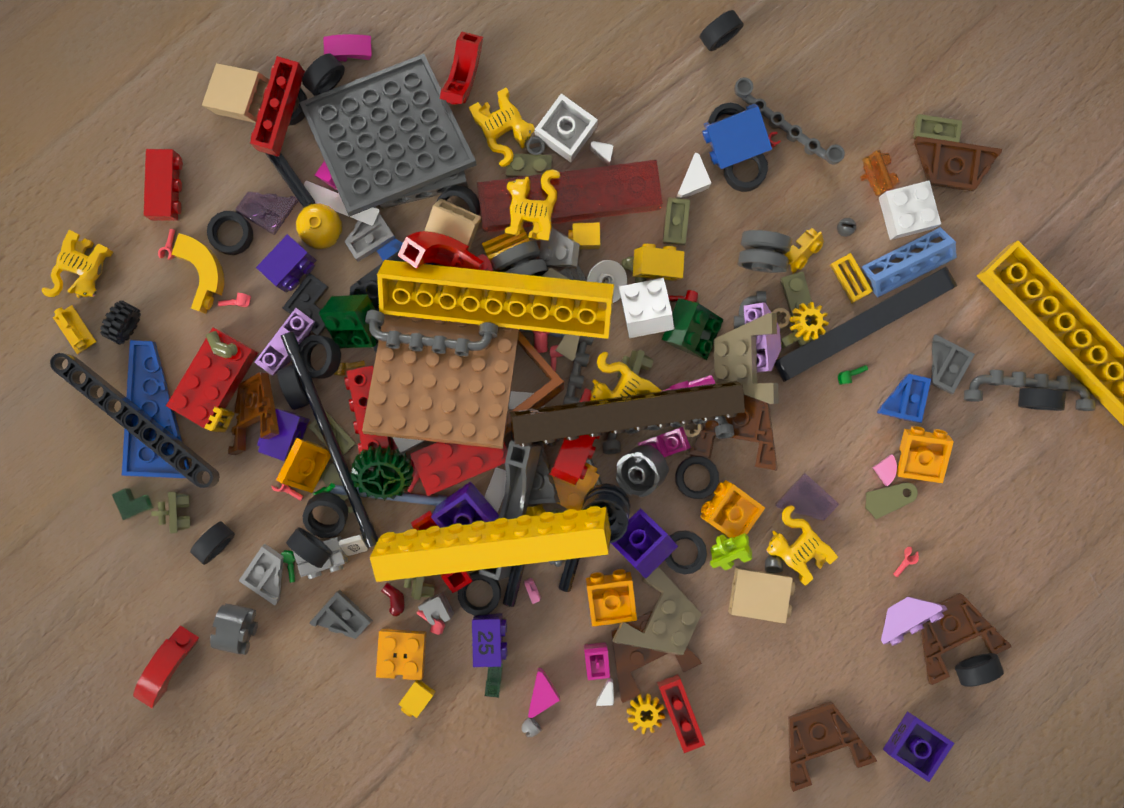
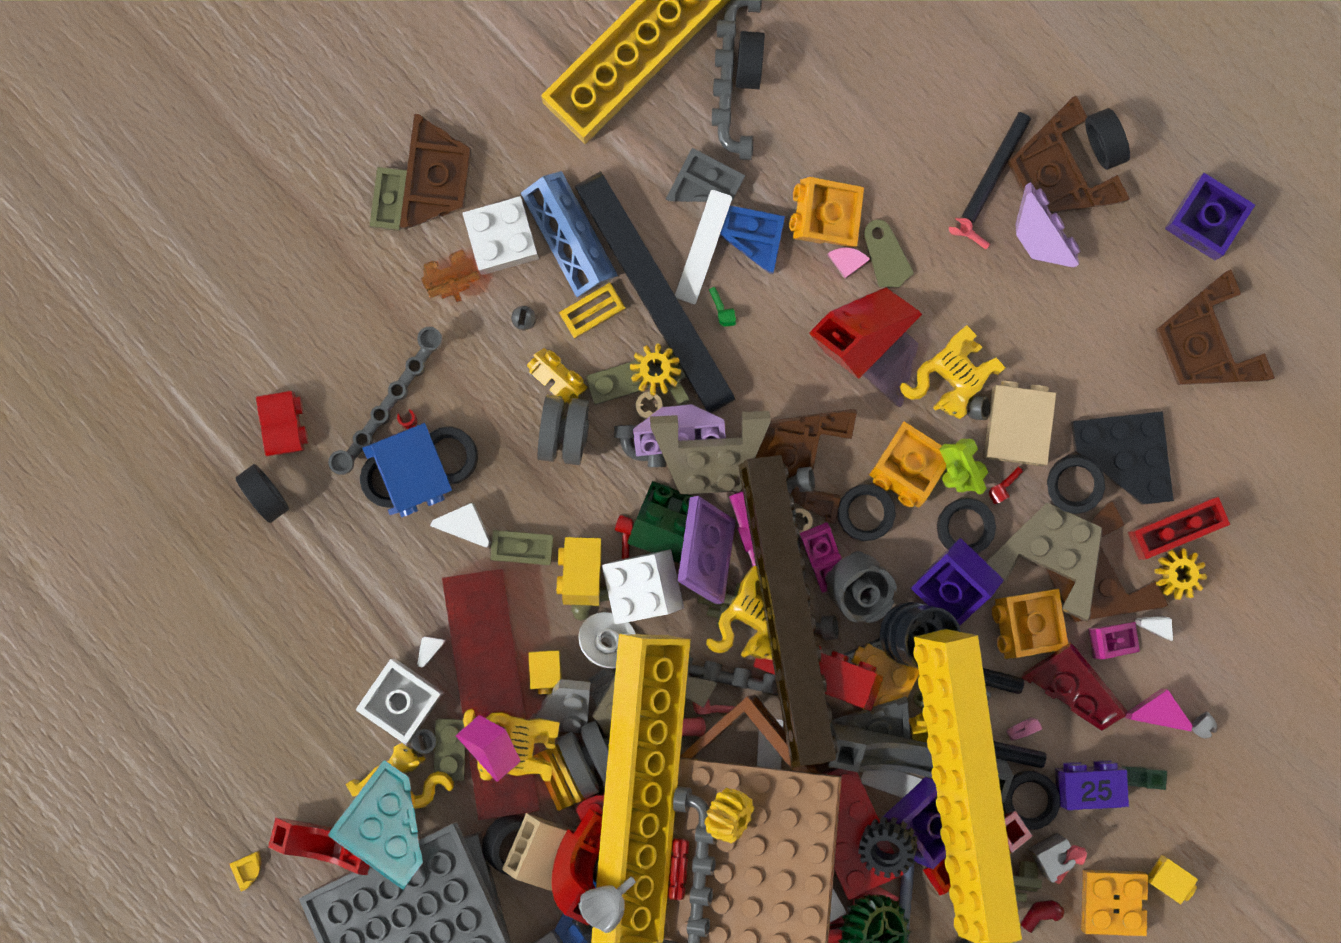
camera: 85 degrees left, 0 degrees up
(411, 266) = (604, 905): none -> light grey piece
(436, 326) = (678, 869): none -> red axle
(437, 482) = (885, 861): none -> black tyre
(445, 18) = (246, 870): none -> yellow tile
(475, 109) = (383, 826): none -> teal plate
(476, 362) = (729, 815): none -> yellow gear
(532, 186) = (490, 746): none -> dark pink slope
(564, 631) = (1076, 684): none -> dark red wing
(673, 355) = (706, 550): none -> medium lavender tile
(698, 640) = (1078, 506): none -> black tyre
(709, 578) = (998, 492): none -> red hand
(737, 677) = (1129, 453): none -> black plate
(771, 47) = (281, 423): none -> red brick
(835, 478) = (864, 329): none -> red slope
(899, 361) = (703, 246): none -> white sticker
(956, 584) = (996, 167): none -> black piece

